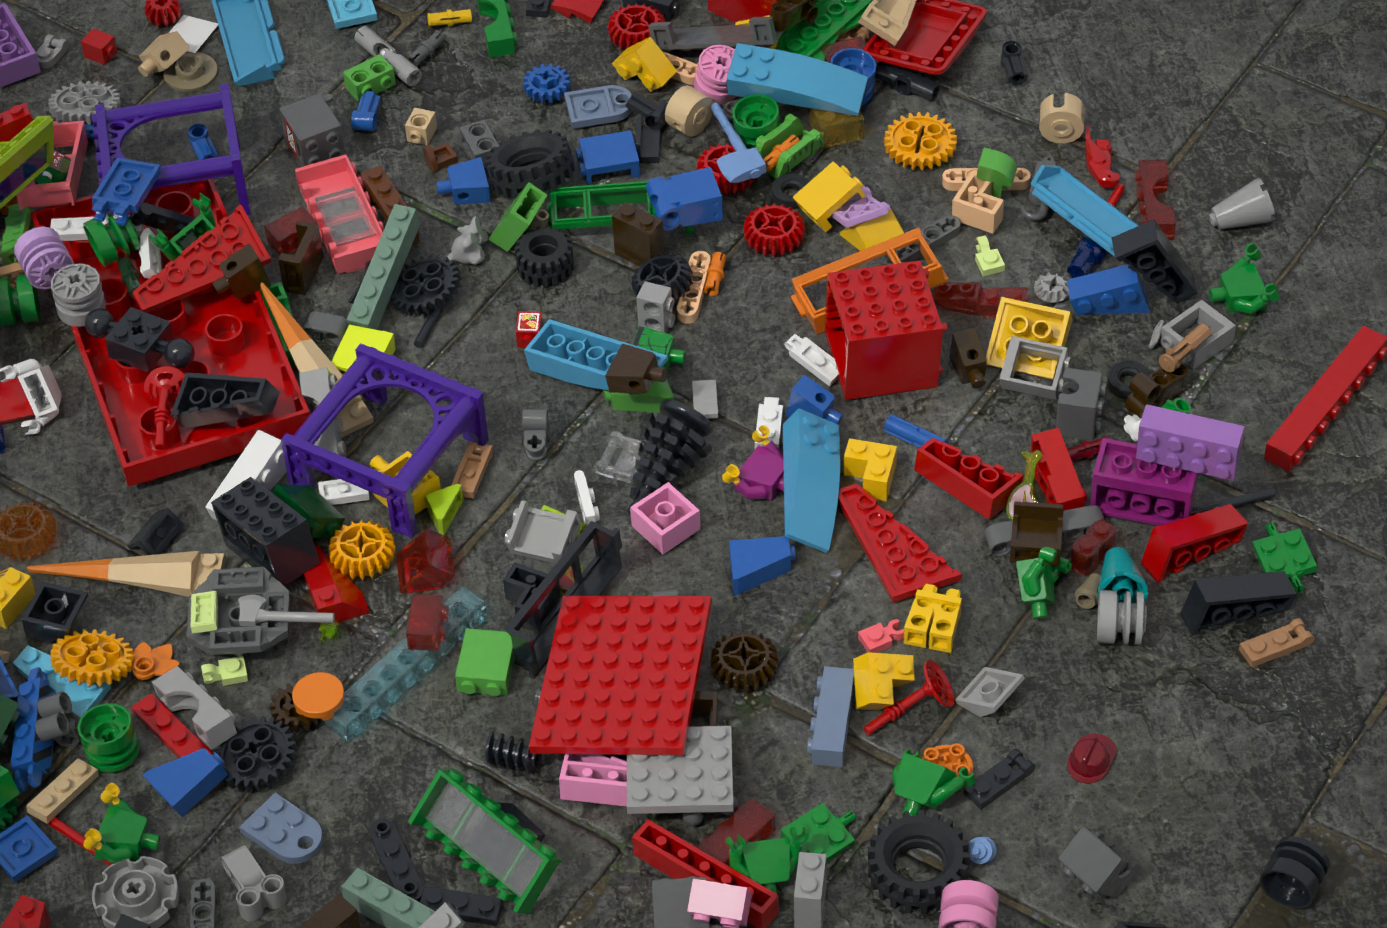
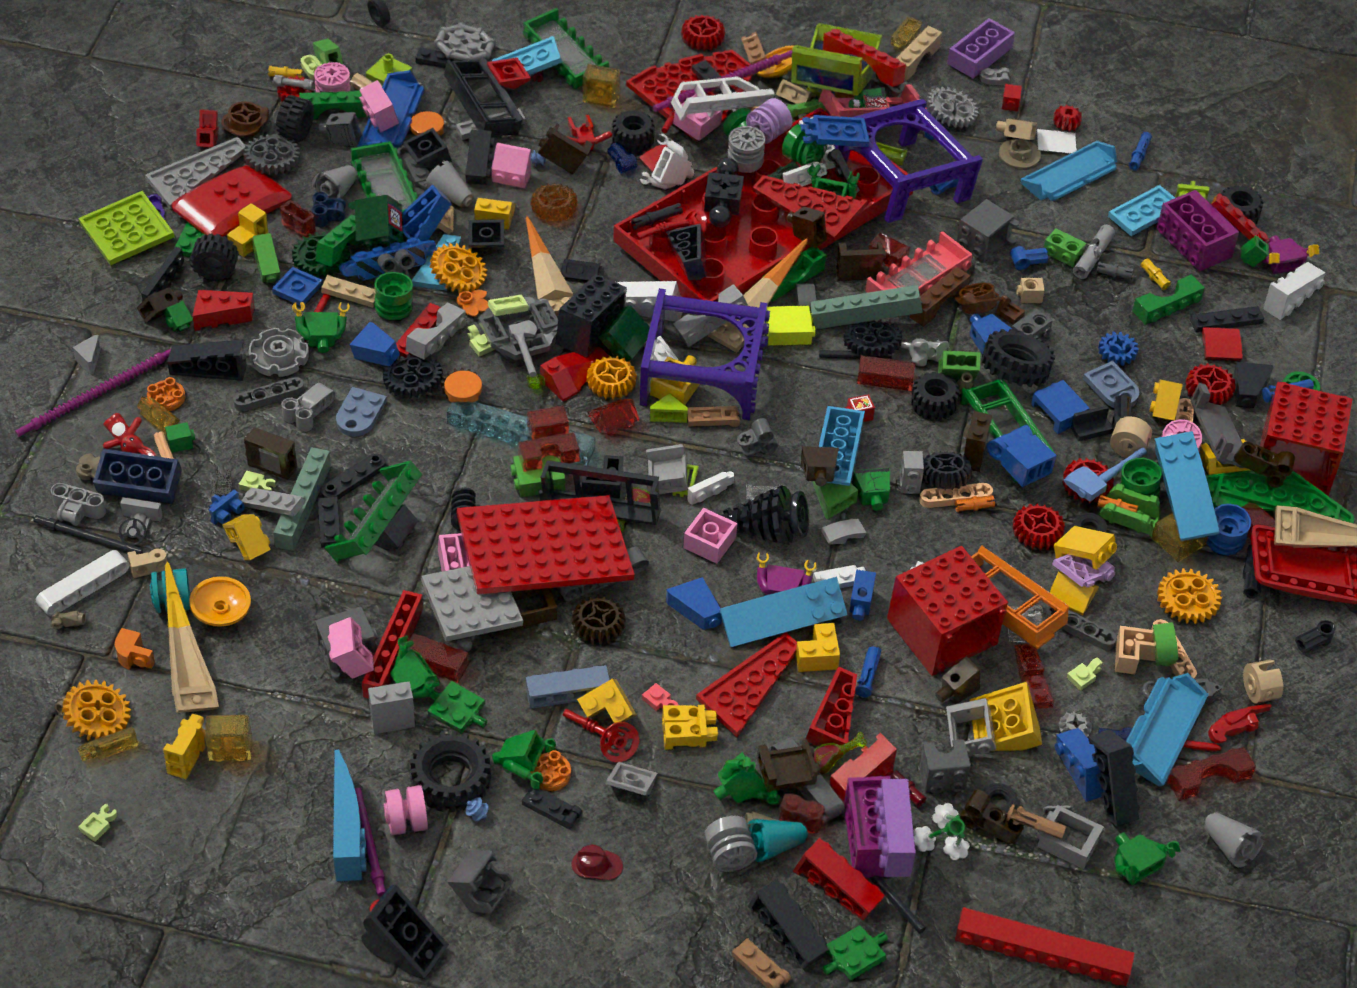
camera: 65 degrees right, 0 degrees up
(138, 423) = (650, 218): none -> black pin
(415, 171) = (978, 298): none -> reddish brown piece
(474, 616) = (561, 446): none -> clear red arch
(484, 290) = (886, 373): none -> clear red brick

